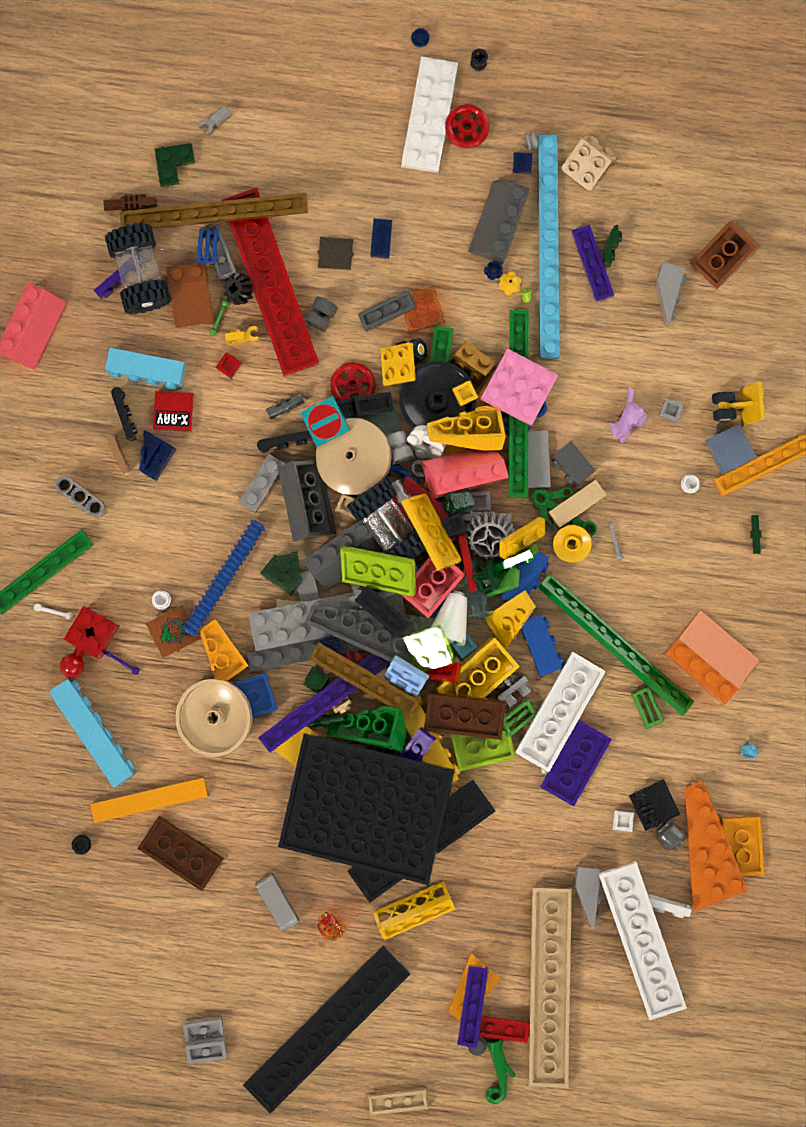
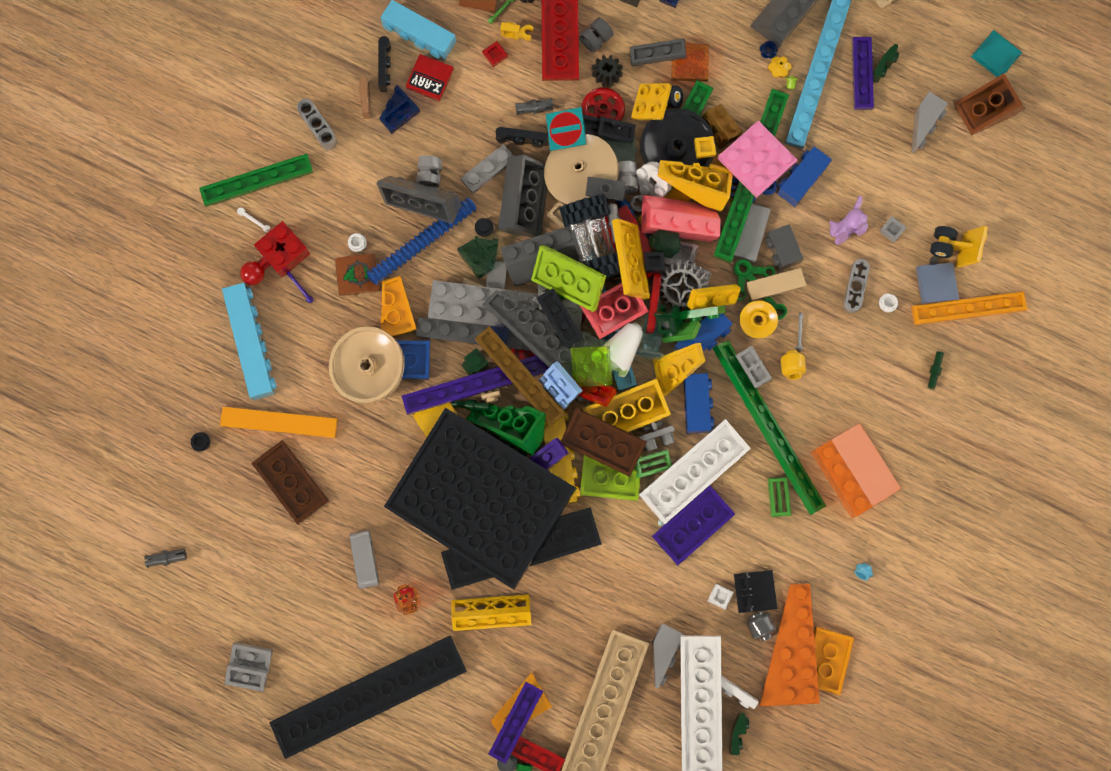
camera: 15 degrees right, 5 degrees down
(89, 965) = (165, 557): none -> dark grey pin
(206, 507) = (429, 171): none -> light grey wheel
(207, 538) = (419, 198): none -> dark grey slope
(278, 543) = (484, 227): none -> black plate
(346, 339) = (613, 68): none -> pearl dark grey gear
(383, 469) = (611, 188): none -> dark grey plate
(569, 386) = (803, 176): none -> blue brick
(583, 591) = (753, 367): none -> light grey hinge
(619, 576) = (793, 365): none -> yellow head
(660, 491) = (863, 281): none -> light grey beam
(681, 938) = (739, 727): none -> dark green slope
(716, 198) = (996, 54): none -> teal piece

